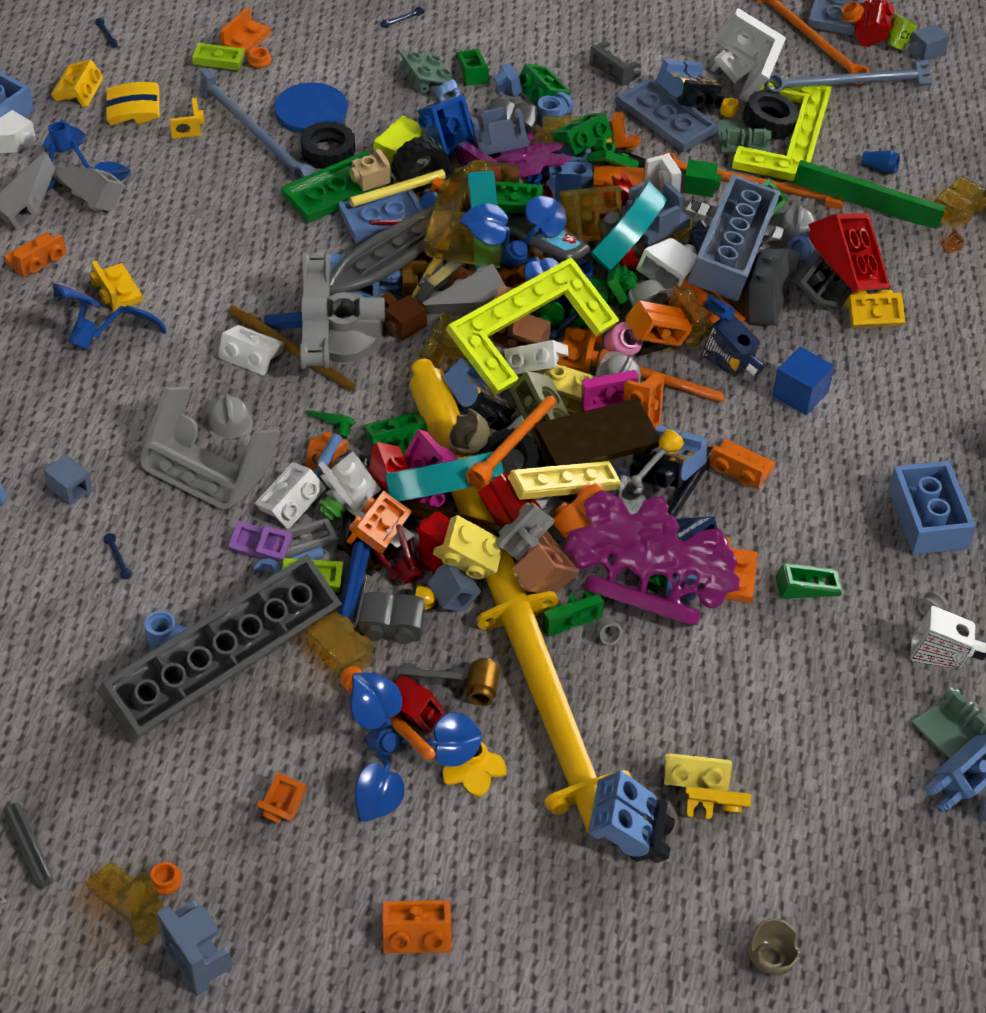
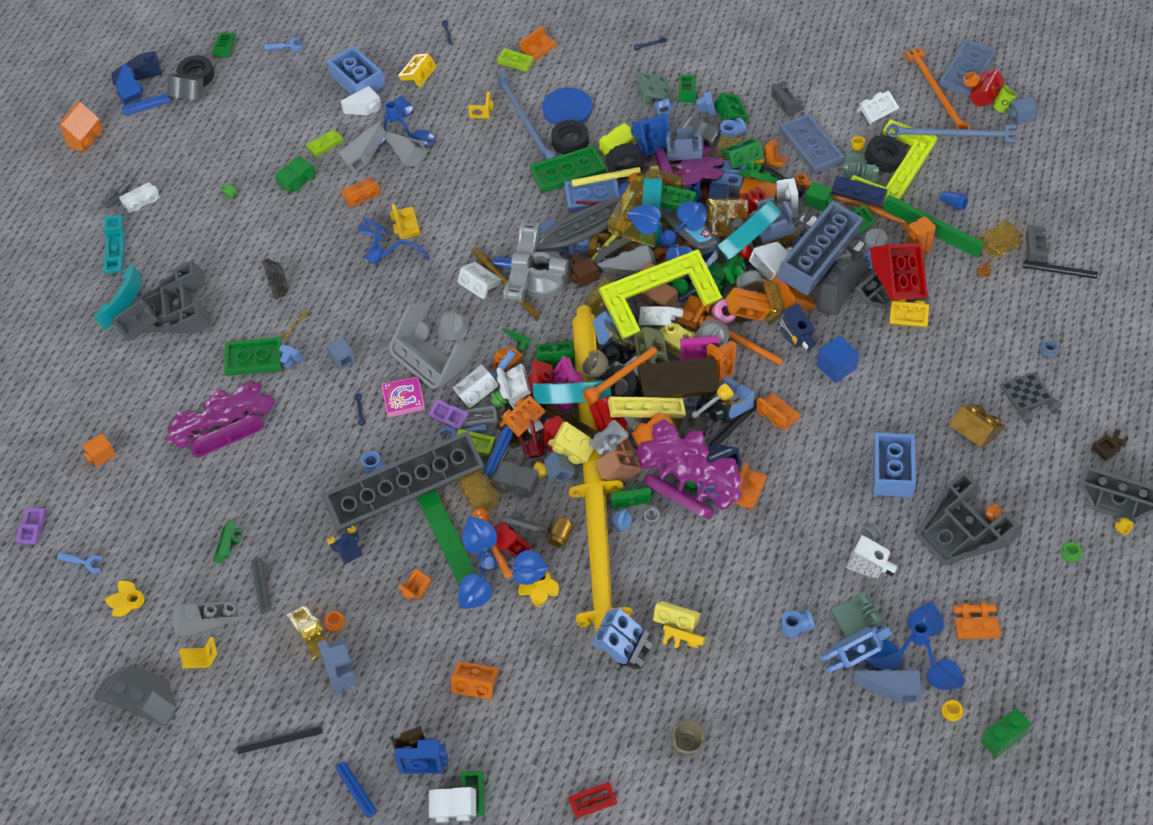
camera: 20 degrees right, 5 degrees up
(133, 101) = (450, 88): yellow slope -> none
(155, 761) = (346, 546): none -> dark blue piece
(181, 527) = (403, 396): none -> tile
(259, 57) = (542, 64): orange plate -> none
(308, 720) = (446, 536): none -> green tile
(371, 171) = (590, 162): tan brick -> none
(568, 649) = (622, 520): none -> medium blue tile
(689, 84) = (833, 123): hips -> none
(718, 308) = (789, 299): blue axle -> none
(754, 164) = (859, 191): none -> dark blue plate
(759, 49) = (885, 97): white bracket -> none
(790, 587) = (787, 506): green slope -> none
(861, 199) = (921, 232): none -> orange brick
(879, 744) = (802, 620): none -> medium blue piece

